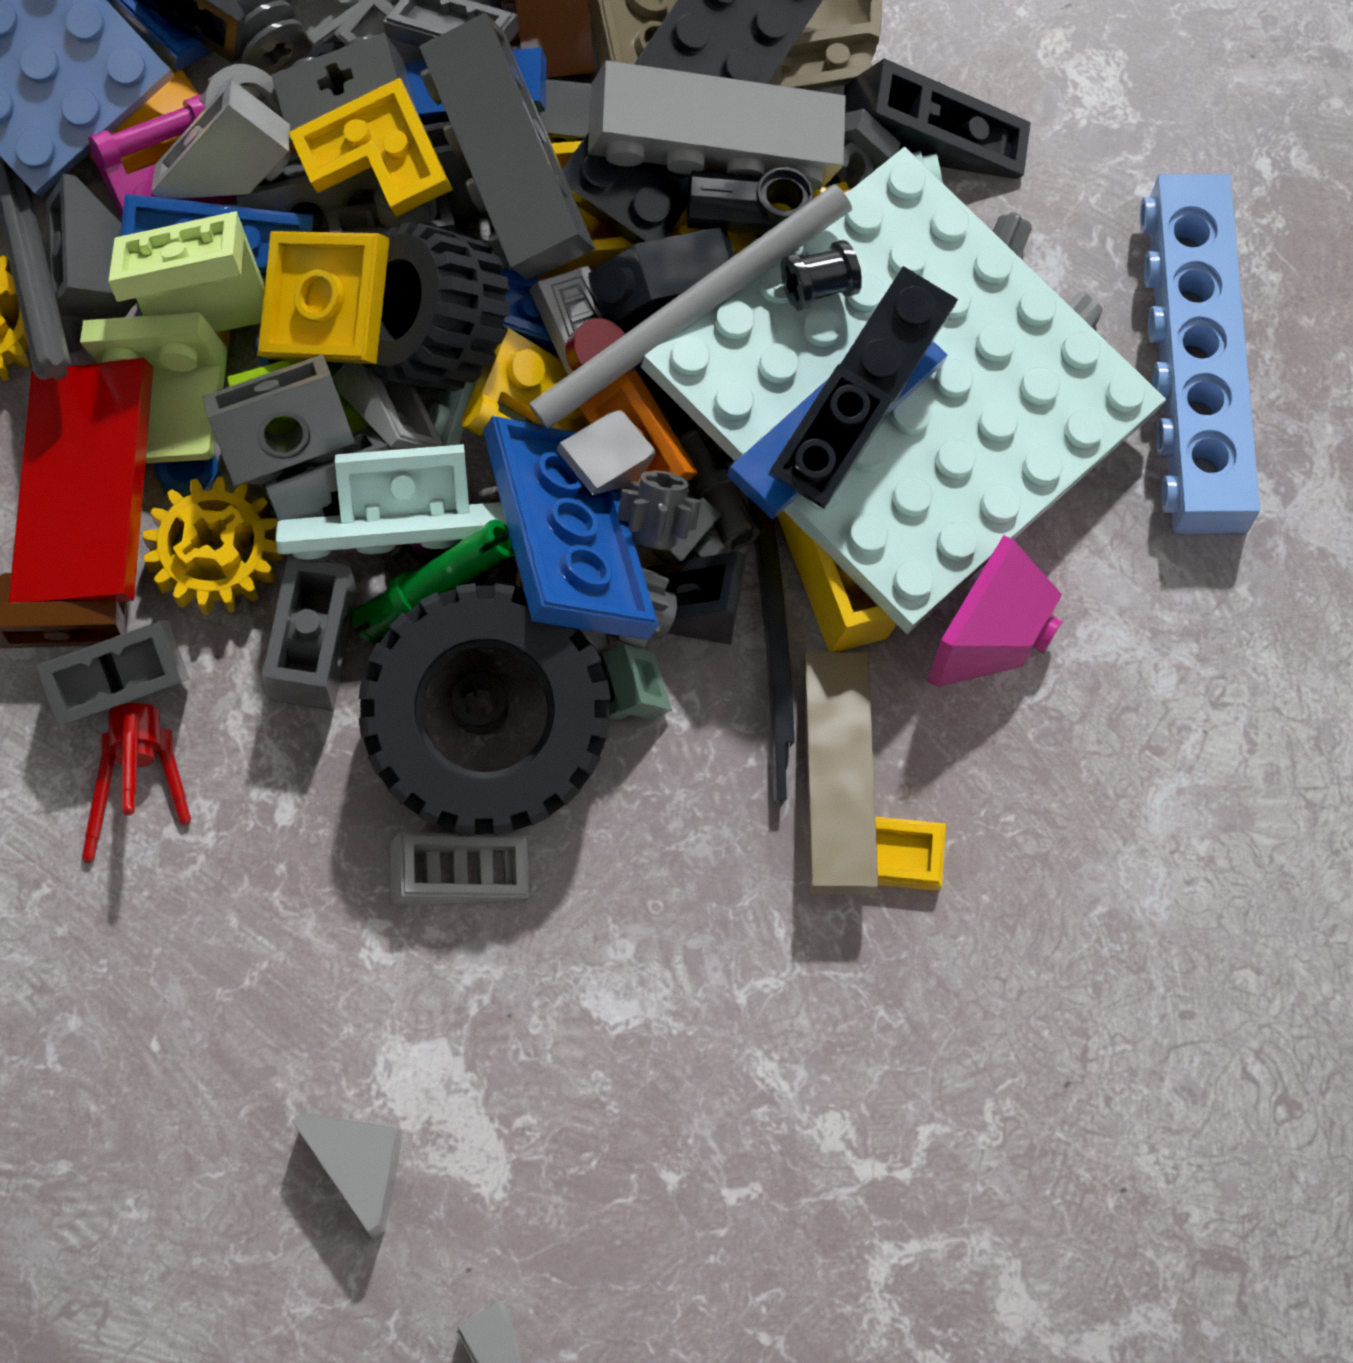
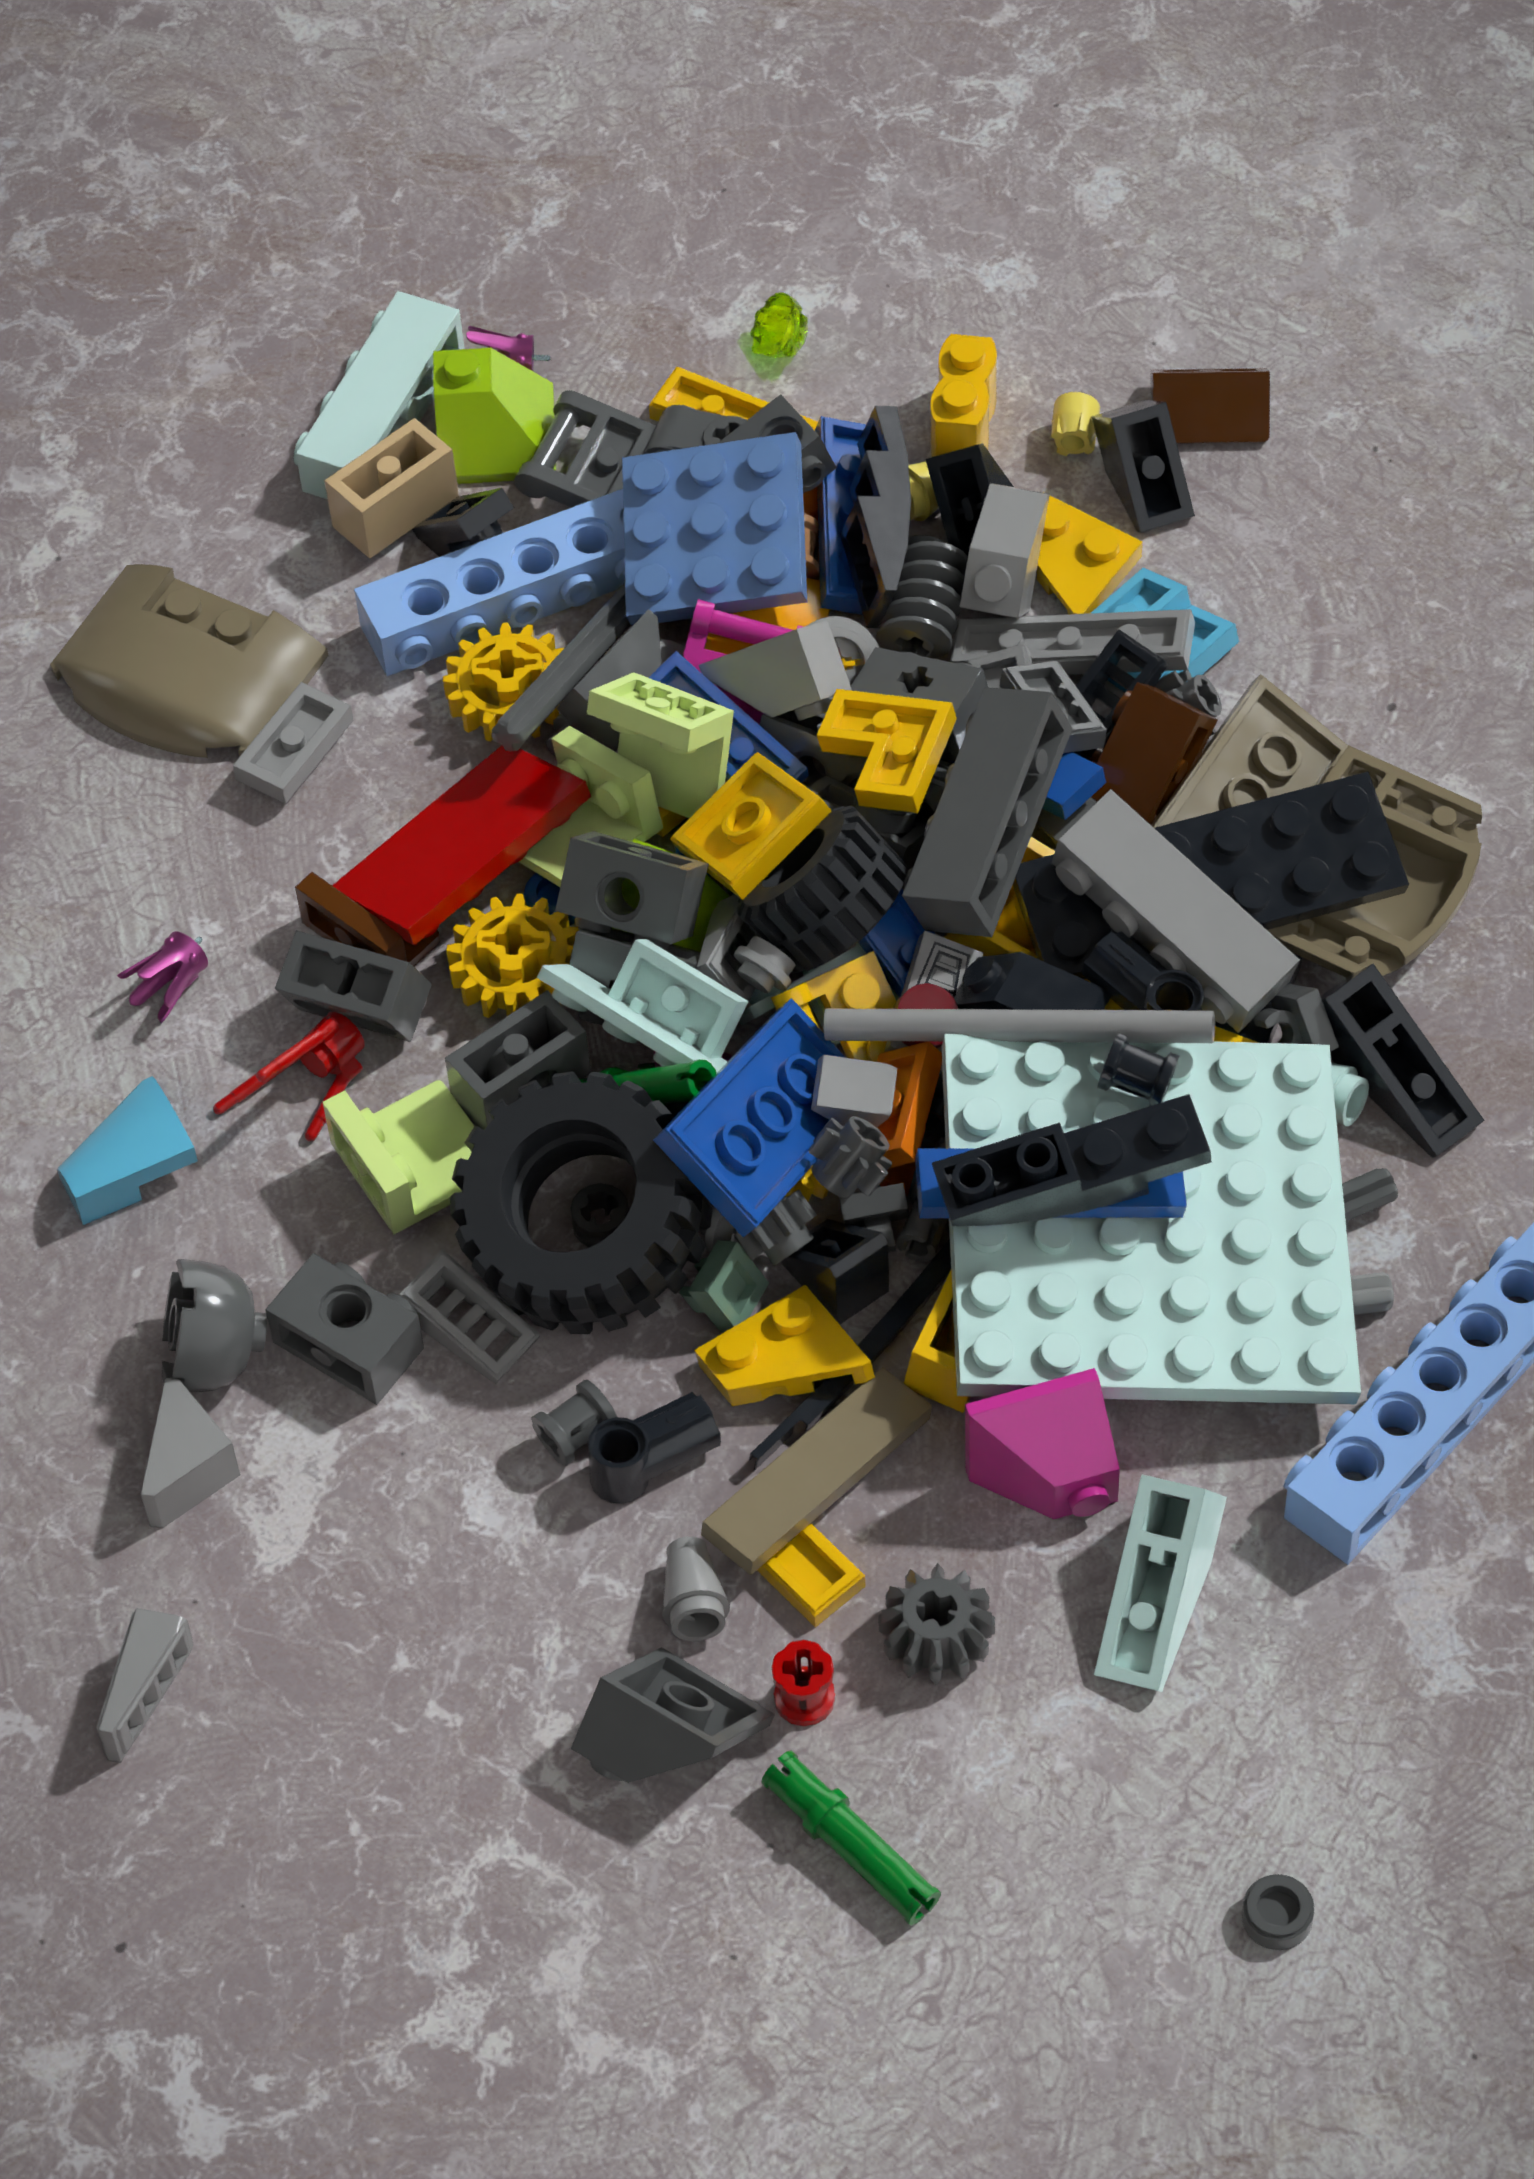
camera: 50 degrees right, 15 degrees down
(53, 954) = (125, 1151): none -> medium azure slope
(278, 1048) = (210, 1326): none -> dark grey cylinder
(287, 770) = (402, 1151): none -> yellowish green bracket
(413, 972) = (361, 1357): none -> dark grey brick
(438, 404) = (764, 965): none -> light grey plate
(627, 883) = (572, 1422): none -> dark grey bush
(701, 852) = (651, 1444): none -> black piece
(722, 698) = (782, 1352): none -> yellow wing
(838, 940) = (693, 1592): none -> light grey cone
(927, 1058) = (662, 1718): none -> dark grey slope
(985, 925) = (788, 1673): none -> red bush
(1060, 821) = (936, 1624): none -> dark grey gear
(1105, 1029) = (829, 1817): none -> green pin
(1154, 655) = (1158, 1580): none -> light aqua slope

